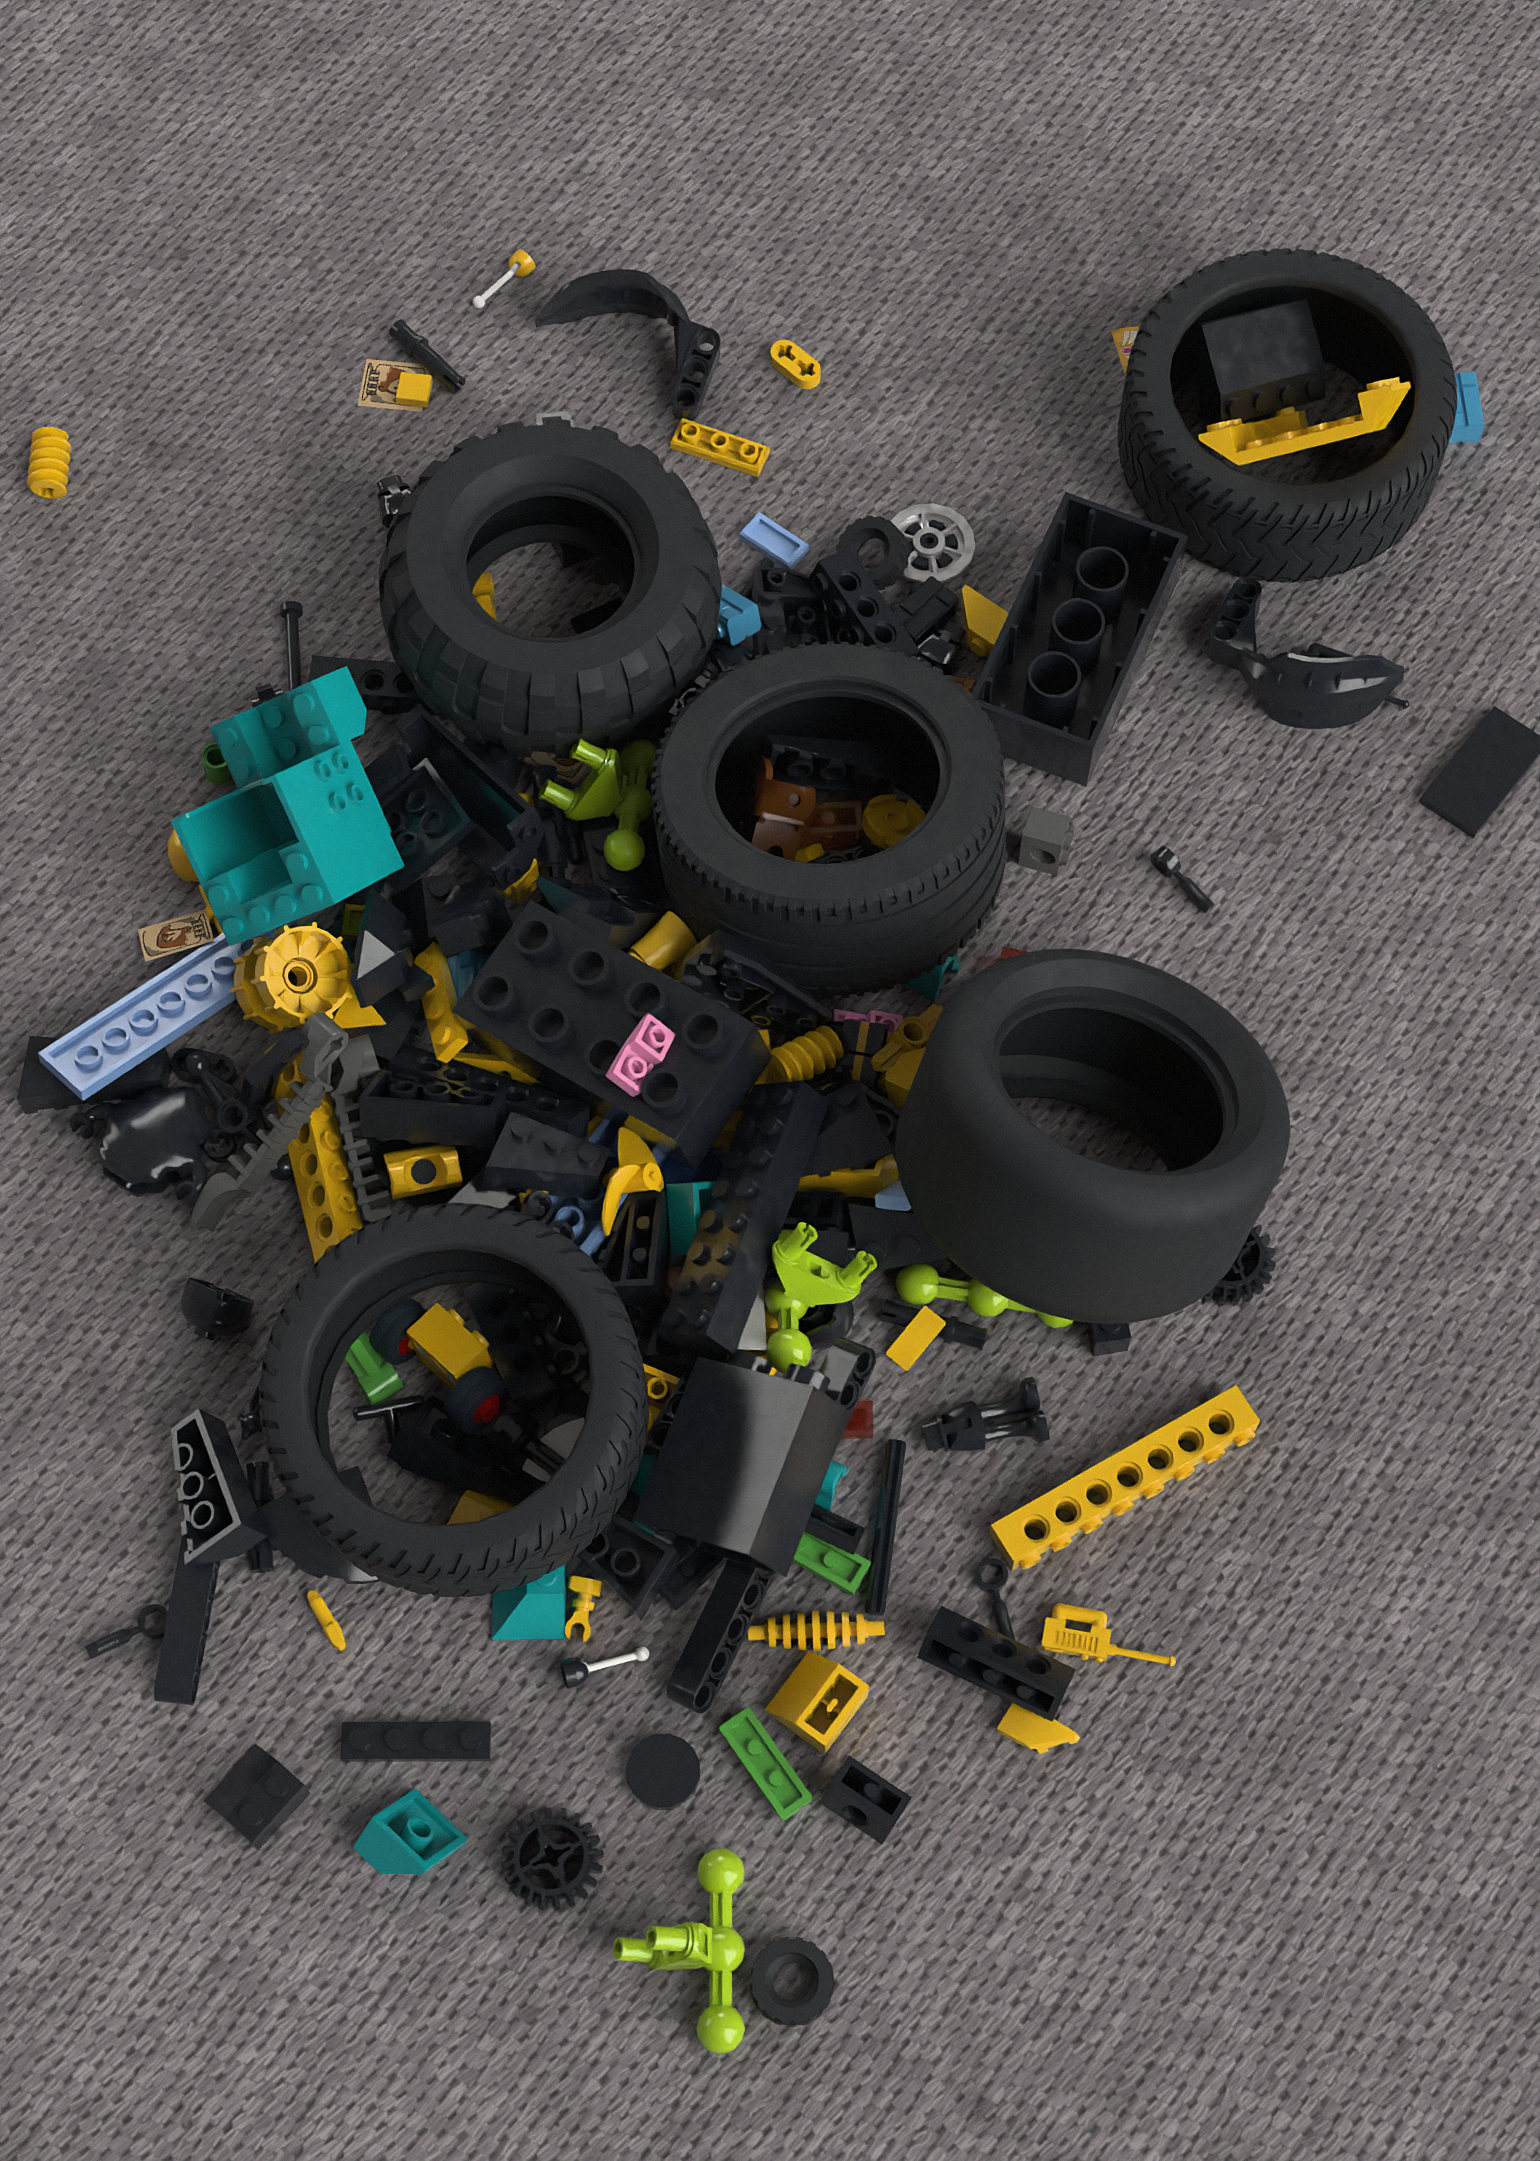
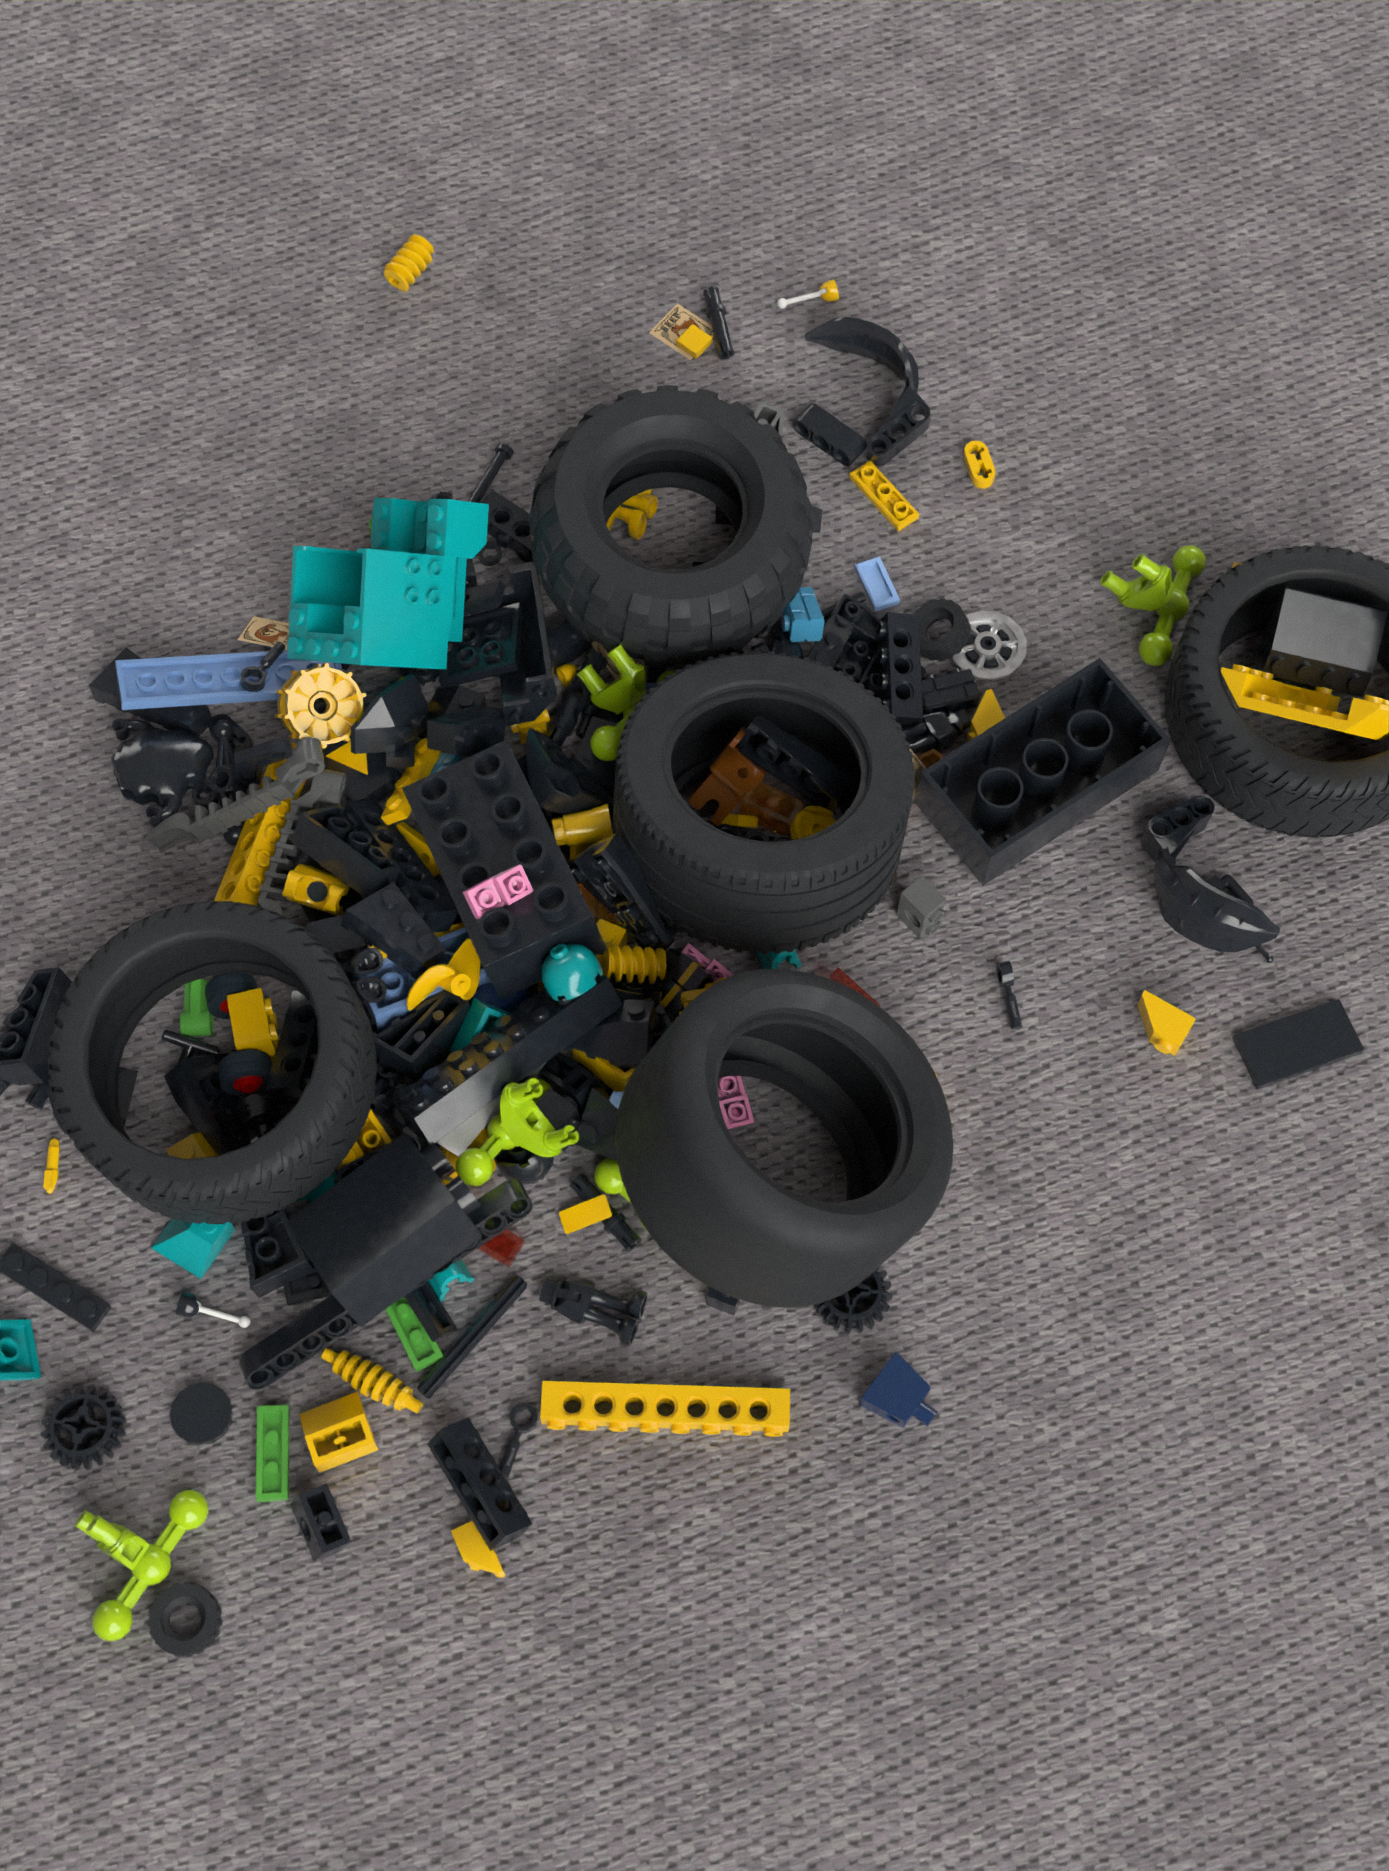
camera: 30 degrees right, 0 degrees up
(198, 980) = (259, 672): none -> black piece
(214, 1309) = (120, 903): black cylinder -> none
(586, 1589) = (227, 1261): yellow piece -> none
(624, 412) = (829, 434): none -> black beam
(761, 1096) = (570, 971): none -> teal cylinder
(1063, 398) = (1157, 592): none -> lime connector
(1085, 1644) = (560, 1514): yellow piece -> none
(1339, 1328) = (899, 1394): none -> dark blue torso
(1348, 823) = (1164, 1023): none -> yellow slope

